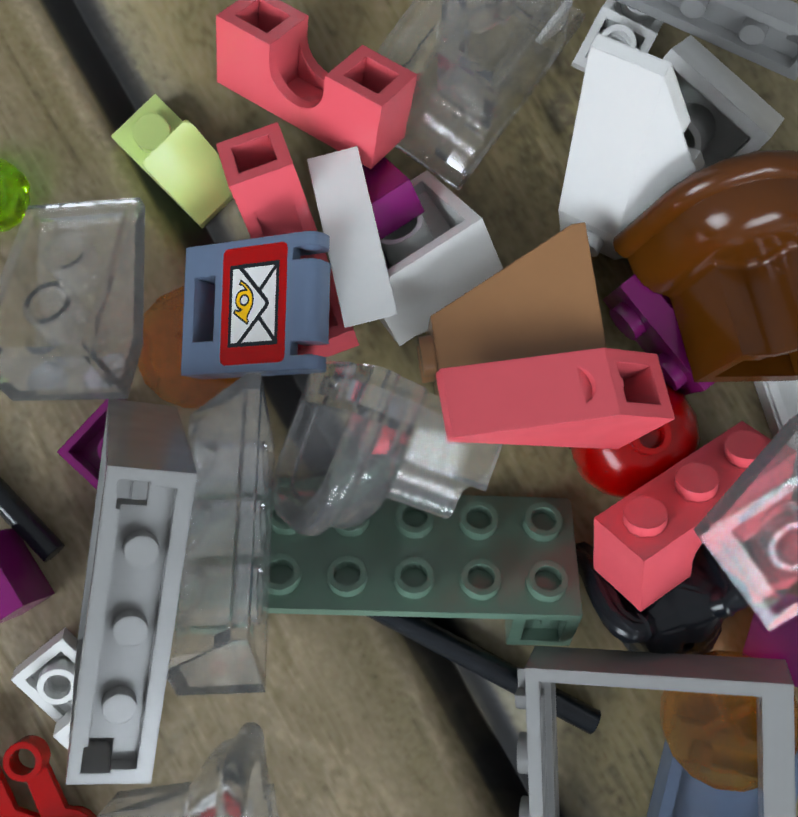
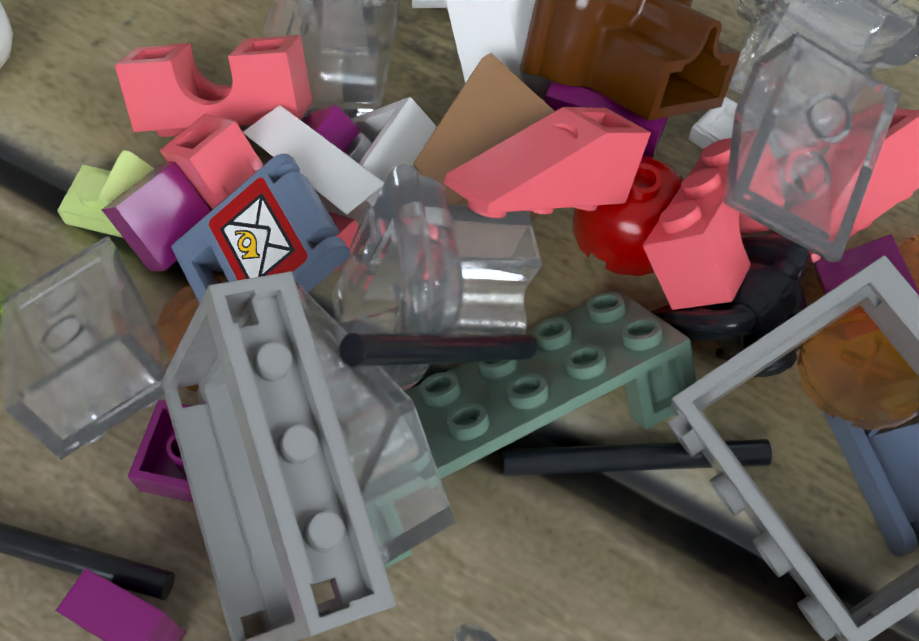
camera: 30 degrees left, 25 degrees down
(193, 204) = (157, 214): none -> magenta piece
(332, 546) = (434, 348): none -> black bar

